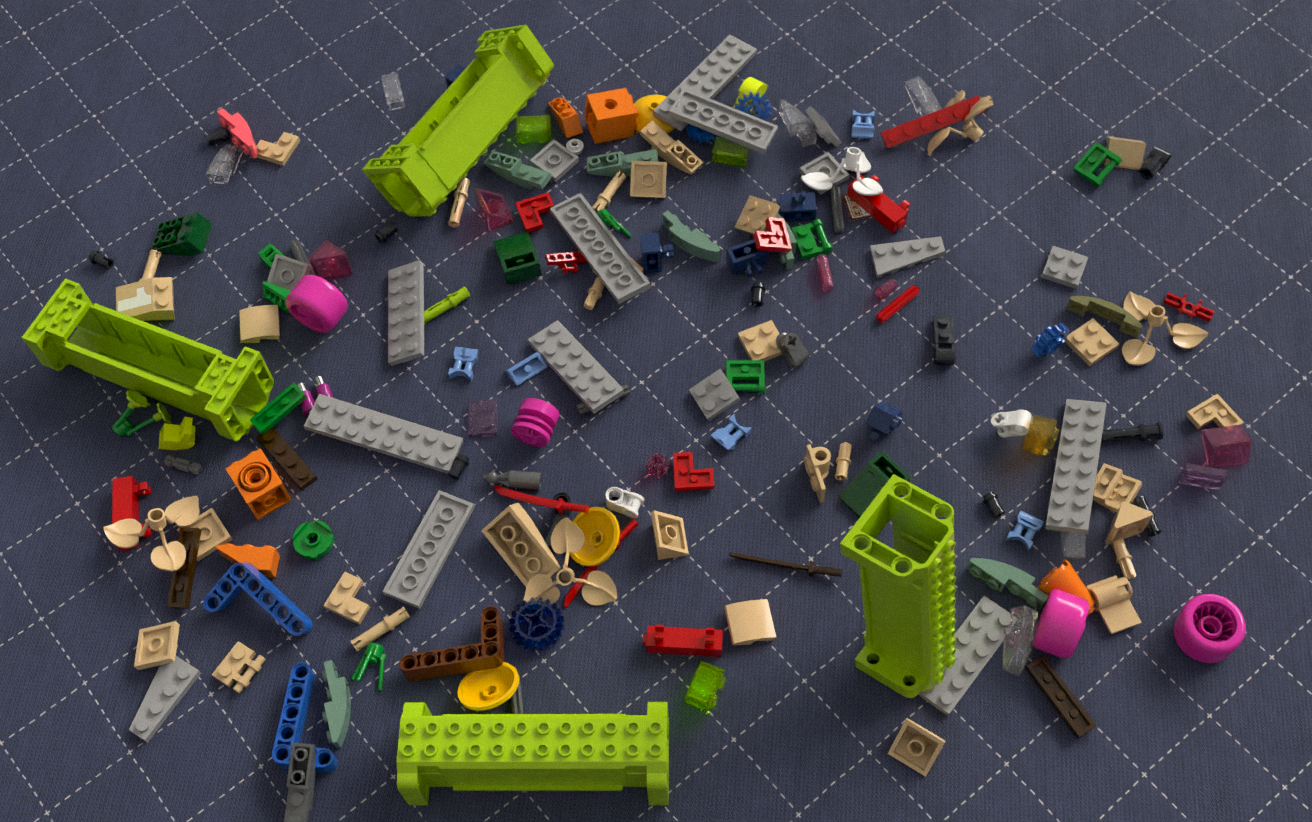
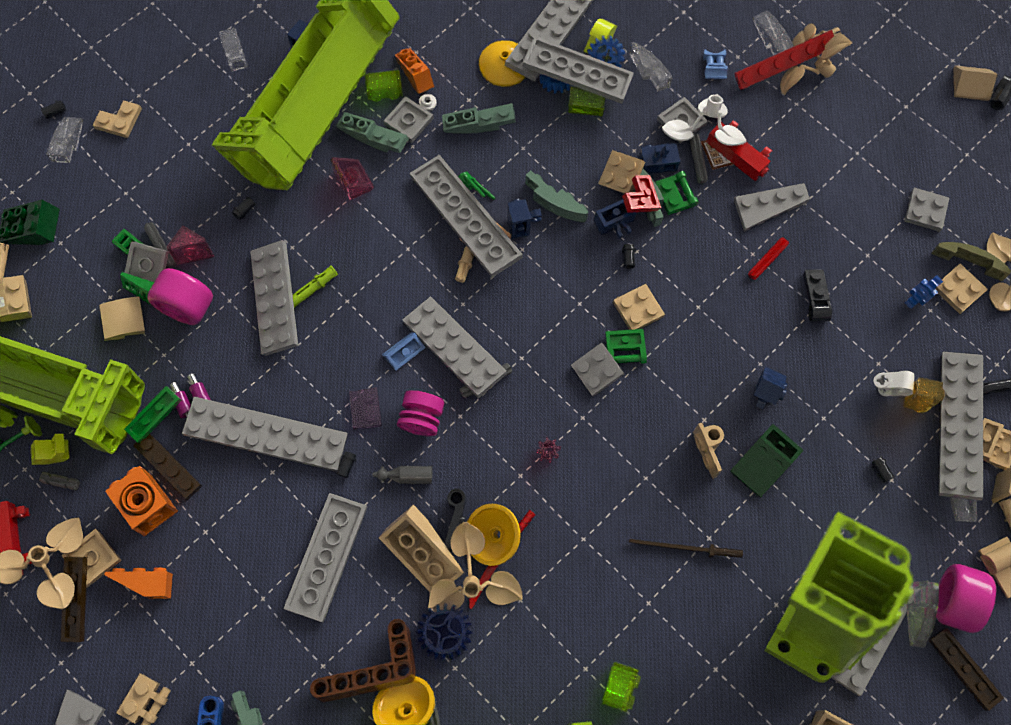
camera: 10 degrees left, 10 degrees up
(157, 645) = (55, 687): tan plate -> none
(240, 132) = (77, 104): coral slope -> none
(261, 596) = (157, 626): blue beam -> none
(315, 550) = (194, 559): green plate -> none
(343, 602) = (242, 617): tan plate -> none
(371, 655) = (280, 678): green plant -> none
(379, 629) = (293, 642): tan pin -> none
(460, 197) = (315, 170): tan pin -> none
(466, 357) = (341, 342): medium blue piece -> none
(517, 258) = (382, 229): dark green slope -> none
(531, 208) = (390, 174): red plate -> none
(560, 505) = (455, 504): red sword -> none
(562, 263) = (428, 234): red piece -> none
(604, 198) = (464, 158): tan pin -> none
(611, 115) = (462, 68): orange brick -> none
(626, 504) = (520, 492): white piece -> none
(648, 179) = (506, 136): tan plate -> none
(669, 535) = (567, 525): tan slope -> none
(673, 152) = (526, 103): tan slope -> none
(683, 641) = (594, 639): red brick -> none
(688, 478) = (580, 461): red plate -> none
(725, 439) = (613, 417): medium blue piece -> none
(750, 622) = (657, 612): tan slope -> none
(792, 349) = (670, 315): dark grey piece -> none
(822, 126) = (677, 71): light grey plate -> none
(824, 272) = (693, 229): clear pink pin -> none
(843, 461) = (731, 432): tan axle -> none
(882, 291) = (752, 245): clear pink pin -> none
(1000, 574) = (918, 552): sand green slope -> none
(1028, 522) = (917, 485): medium blue piece -> none
(1066, 580) = (960, 549): orange cone -> none
(1092, 161) = (944, 95): green plate -> none

